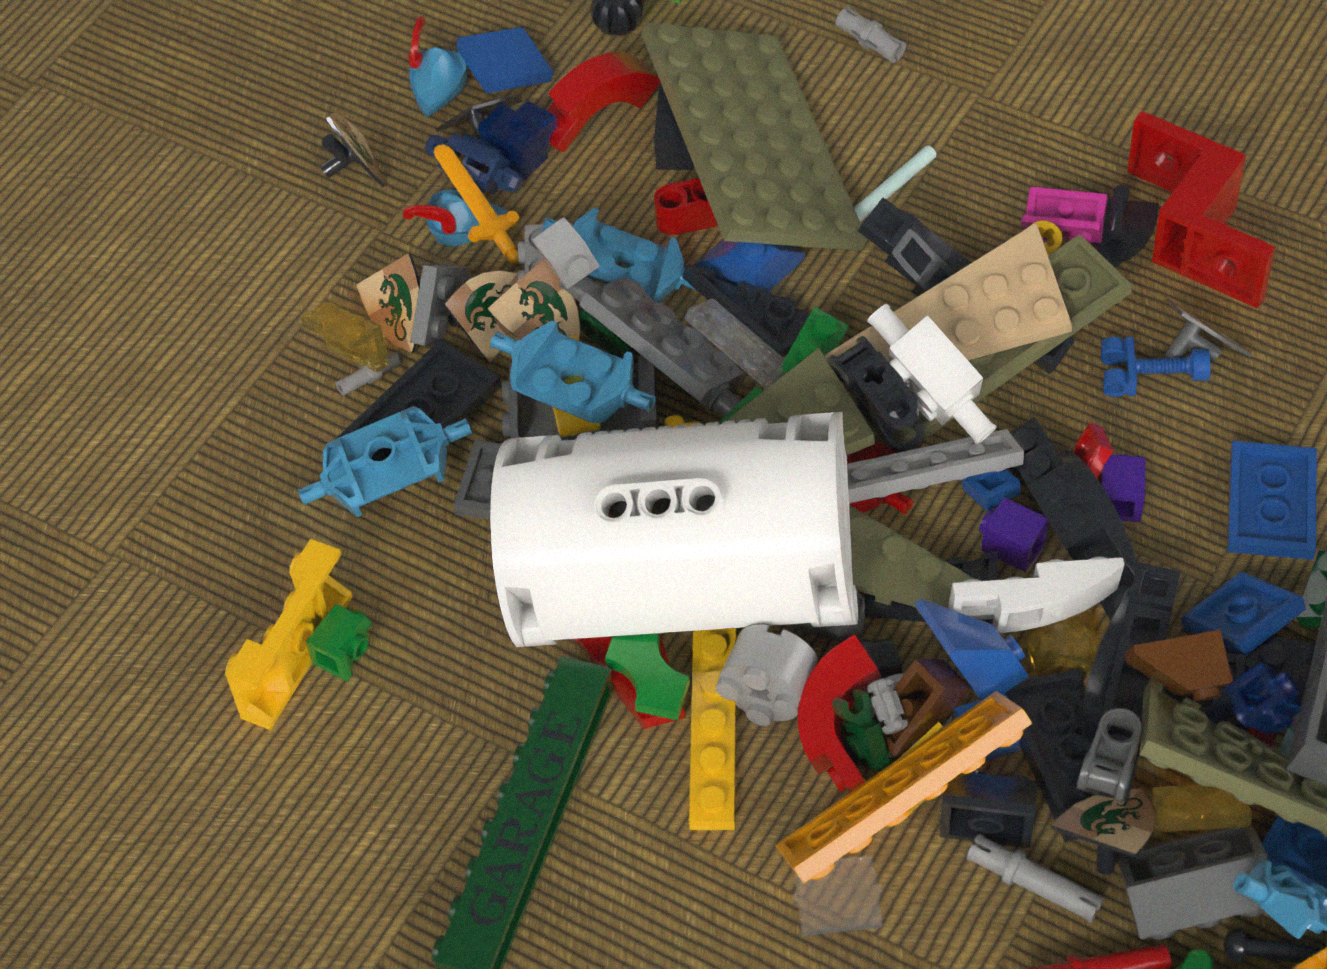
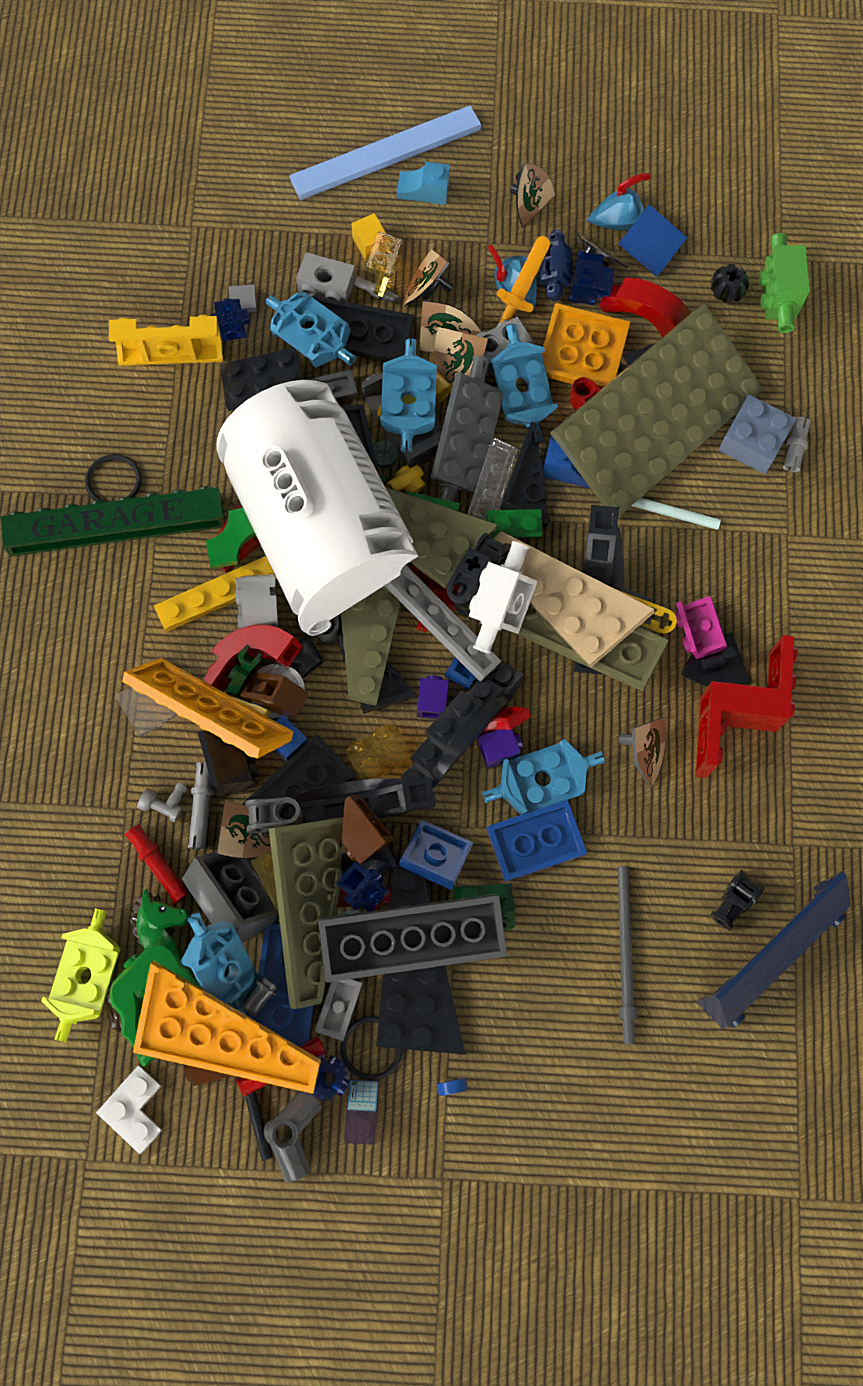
camera: 55 degrees right, 20 degrees up
(169, 288) = (385, 152): none -> light blue tile
(257, 251) = (426, 184): none -> dark azure arch
(275, 531) = (246, 294): none -> light grey tile
(290, 346) = (365, 232): none -> yellow brick
(293, 539) = (231, 319): none -> clear blue brick
(315, 417) = (317, 269): none -> light grey brick
(339, 641) = (182, 369): green brick -> none
(420, 549) = (255, 374): none -> black plate
(427, 777) = (112, 457): none -> black tyre
(435, 287) = (437, 290): dark grey plate -> none
(565, 253) = (485, 347): light grey brick -> none
(607, 175) = (583, 345): none -> light orange plate
(837, 62) = (757, 434): none -> sand blue brick
(887, 706) = (257, 676): light grey piece -> none
(976, 649) = (320, 706): blue slope -> none
(994, 943) = (170, 808): none -> light grey piece
(1052, 595) = (383, 737): white slope -> none
(1119, 382) = (621, 755): blue bar -> none
(1192, 432) = (562, 764): none -> dark azure plate

